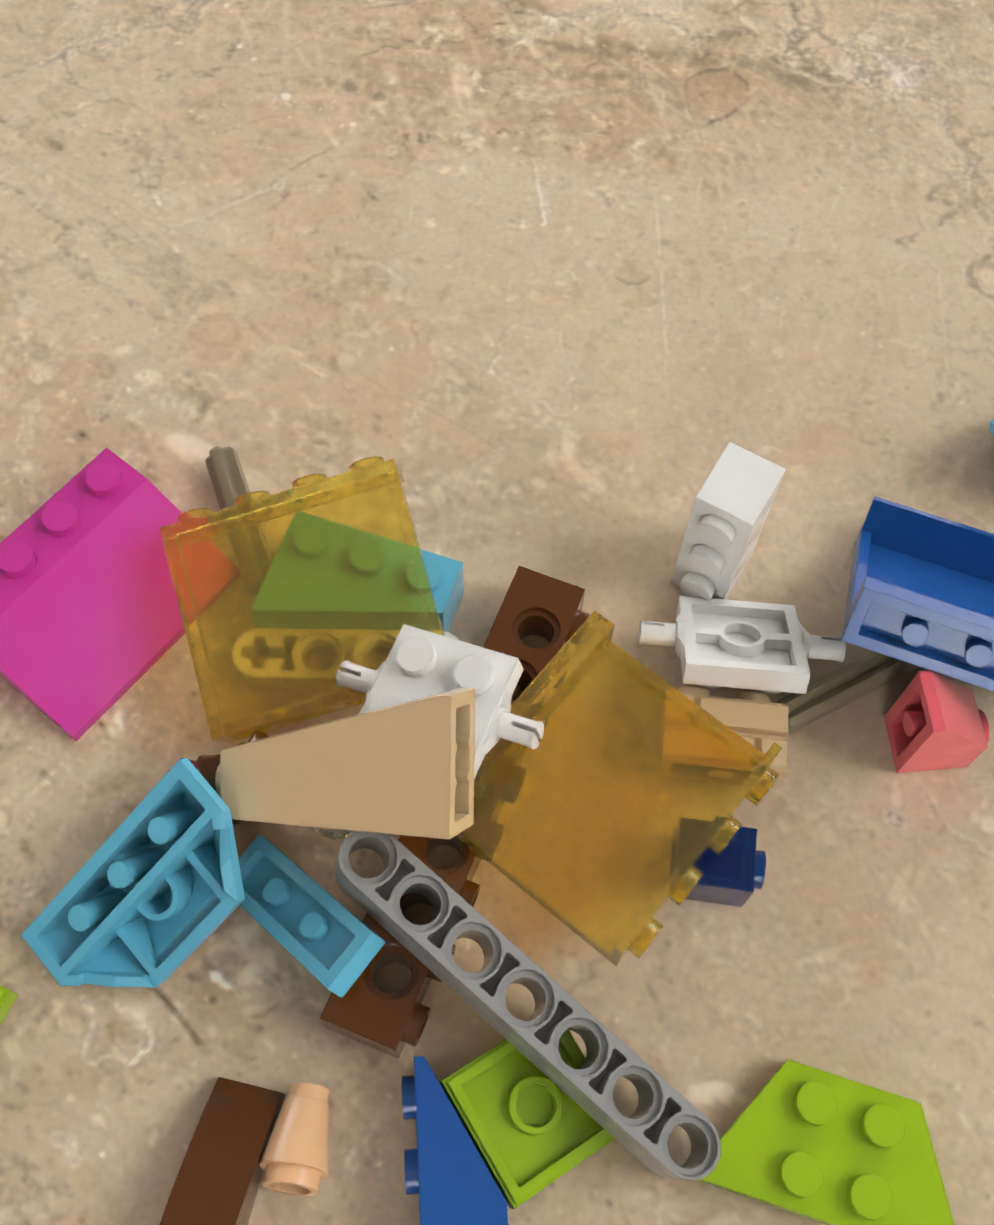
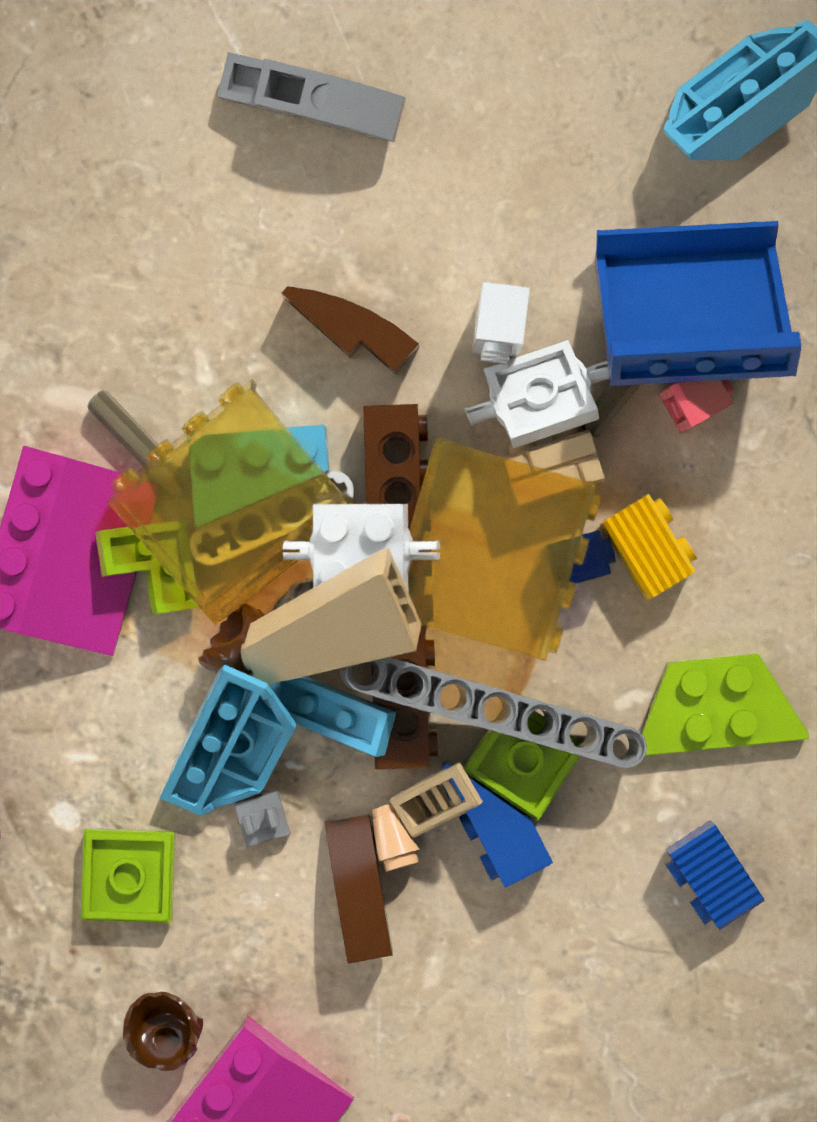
camera: 20 degrees left, 25 degrees up
(139, 1030) = (262, 818): none -> light grey tile
(153, 615) = (124, 553): none -> lime plate
(344, 1106) = (413, 812): none -> tan slope
(546, 492) = (353, 326): none -> reddish brown slope
(609, 259) = (311, 96): none -> light grey slope
(814, 887) = (649, 546): none -> yellow brick

